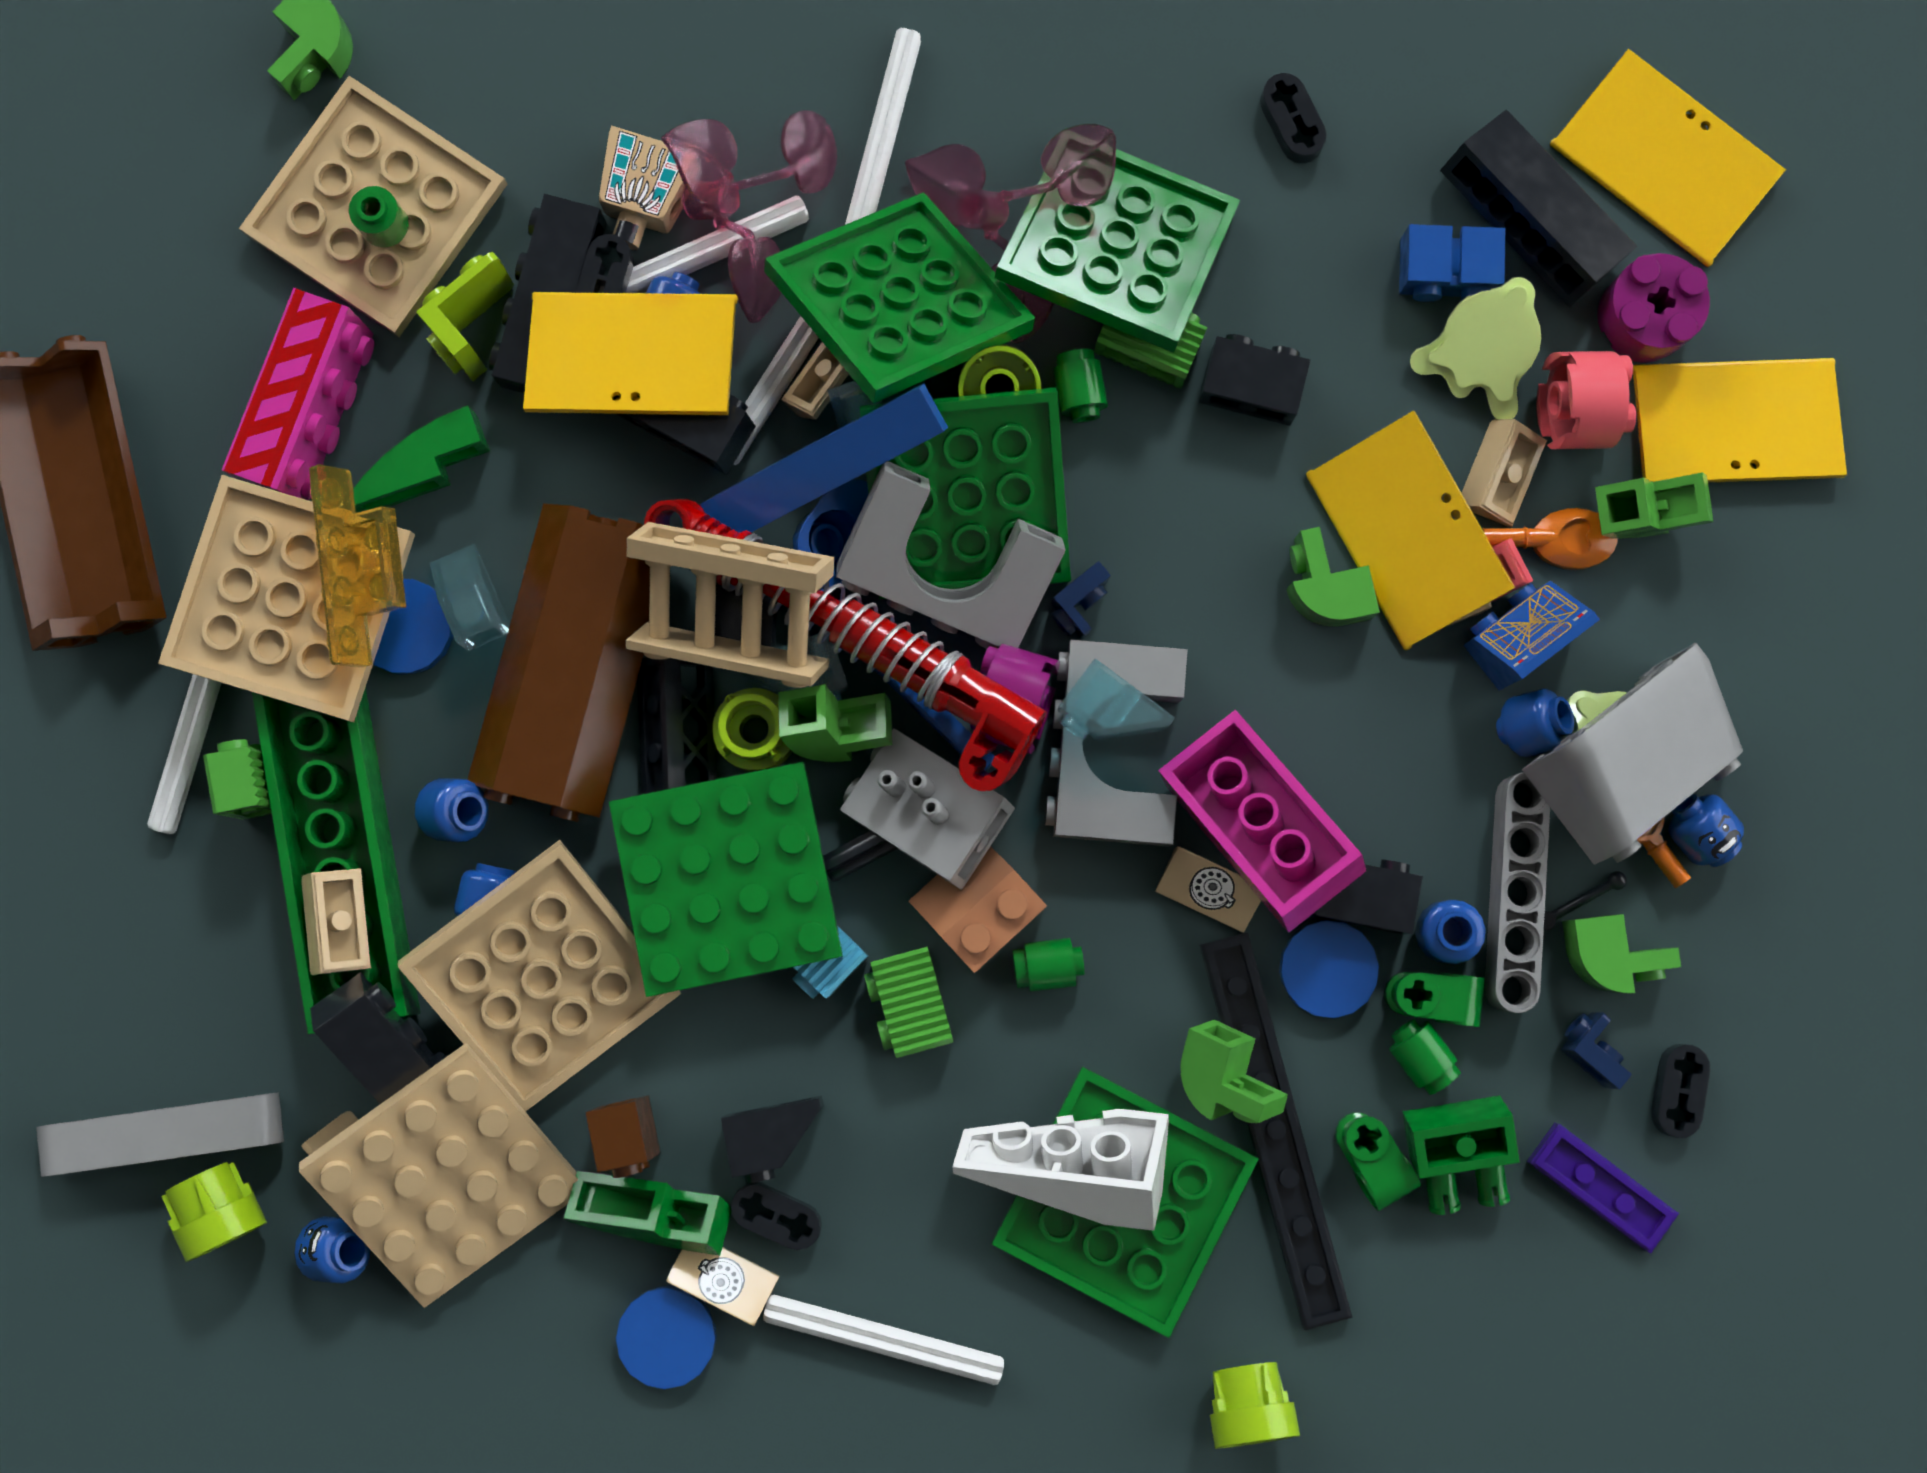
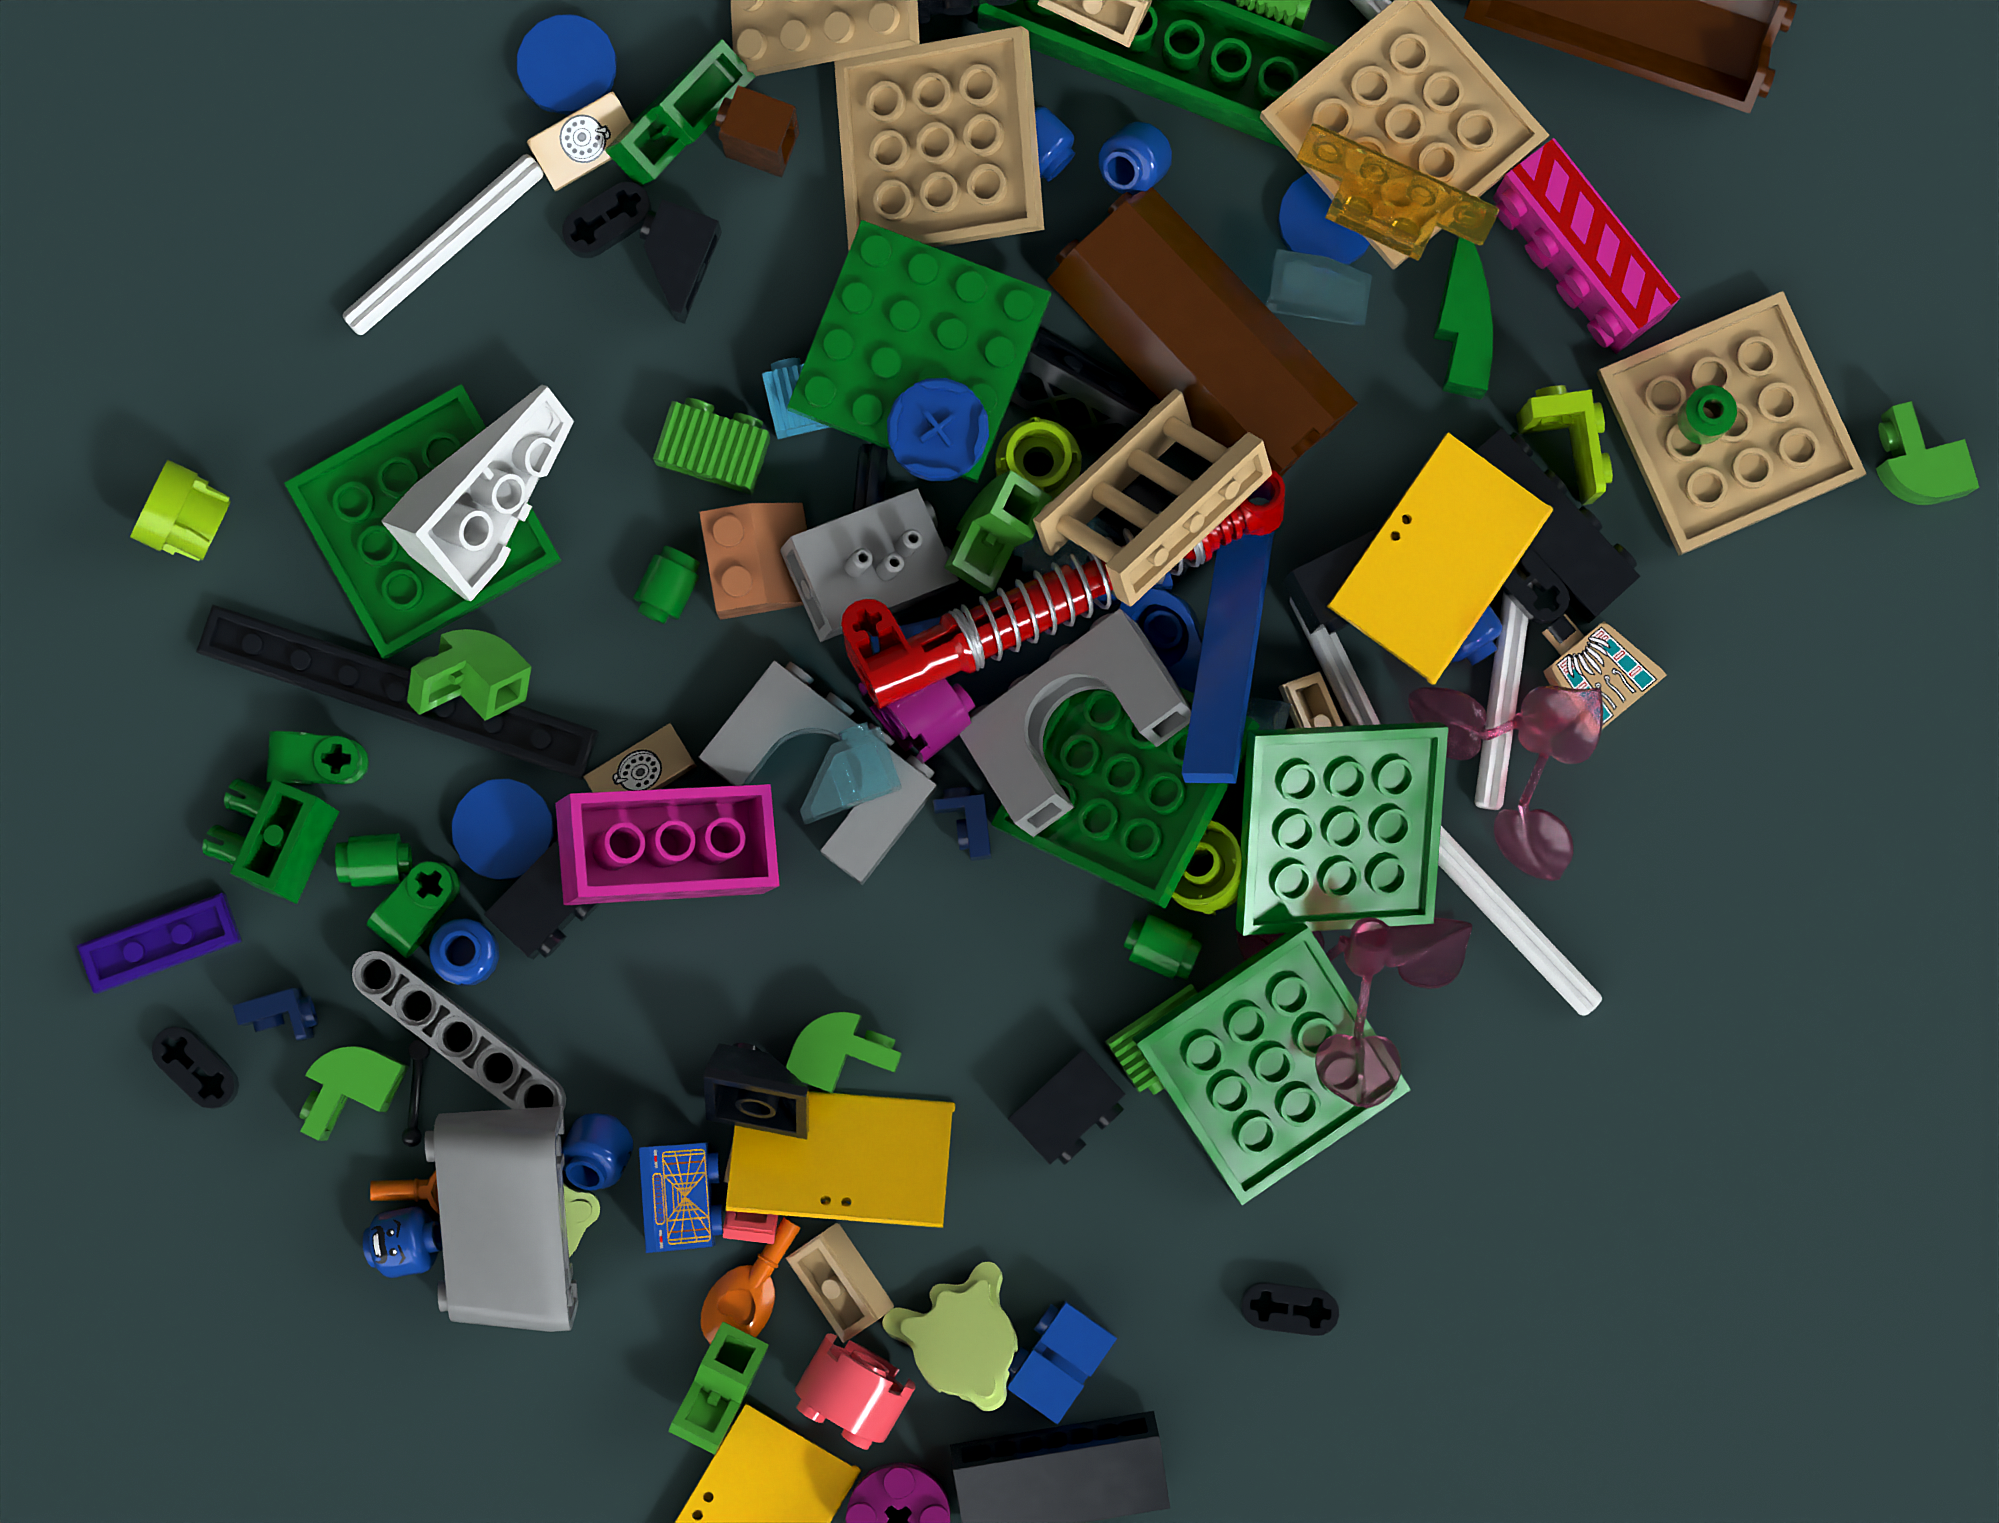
camera: 120 degrees right, 0 degrees up
(783, 817) = (938, 429): none -> blue tile
(1405, 626) = (755, 1092): none -> black slope

